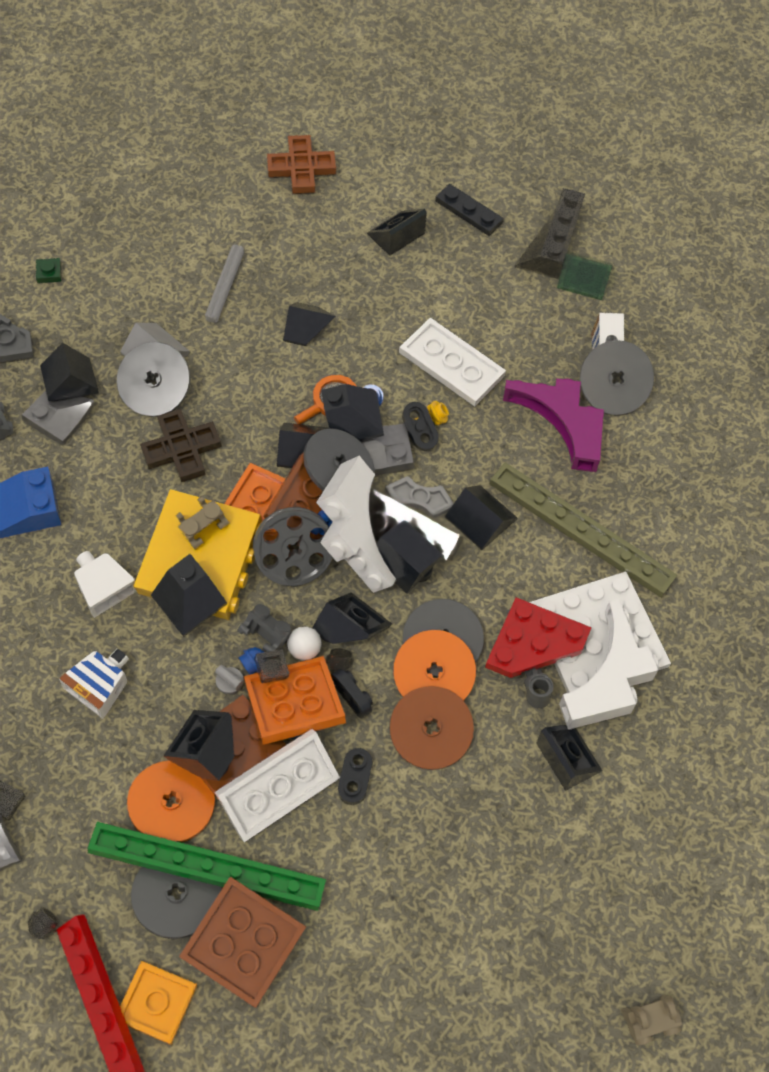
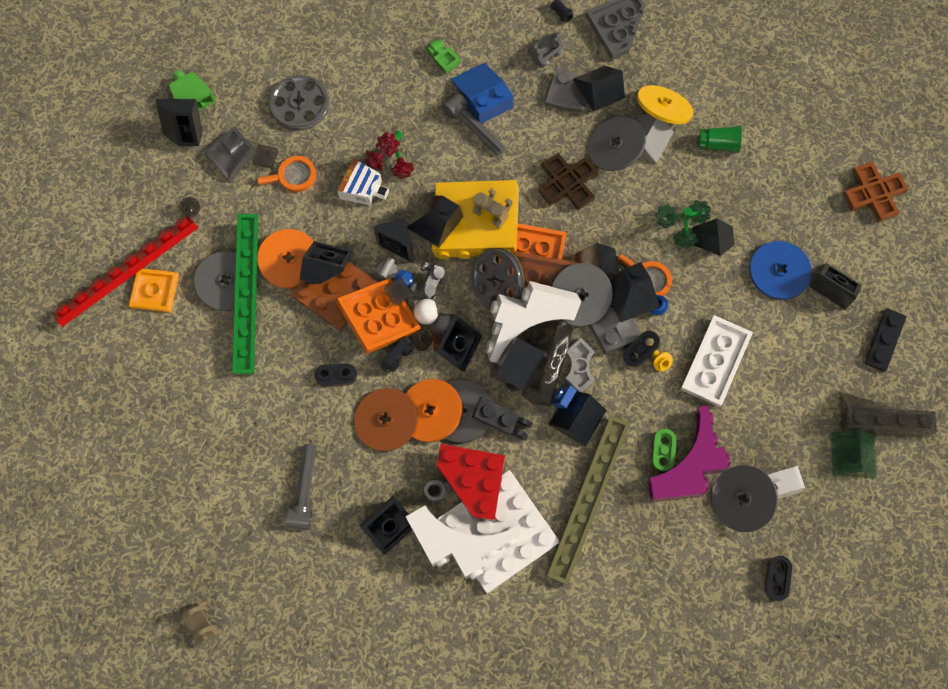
camera: 80 degrees right, 10 degrees up
(30, 541) = (457, 108): none -> dark grey axle
(44, 768) = (294, 174): none -> orange piece
(48, 270) = (693, 43): dark green plate -> none
(66, 622) = (389, 145): none -> dark red plant
(102, 582) = (437, 162): white torso -> none
(122, 316) = (665, 104): none -> yellow piece
(187, 276) = (721, 138): none -> green plant
(199, 649) = (395, 238): none -> black slope
(224, 283) = (729, 168): light grey axle -> none
(243, 941) = (198, 330): dark orange plate -> none
(272, 327) = (698, 212): none -> clear green plant
(277, 785) = (312, 322): white plate -> none
(355, 287) = (786, 283): none -> blue piece
(456, 519) = (563, 396): none -> blue plate
(465, 593) = (500, 418): none -> black hinge
(534, 860) = (299, 515): none -> dark grey axle
(543, 439) = (664, 451): none -> bright green plate
(703, 377) = (779, 579): none -> black plate

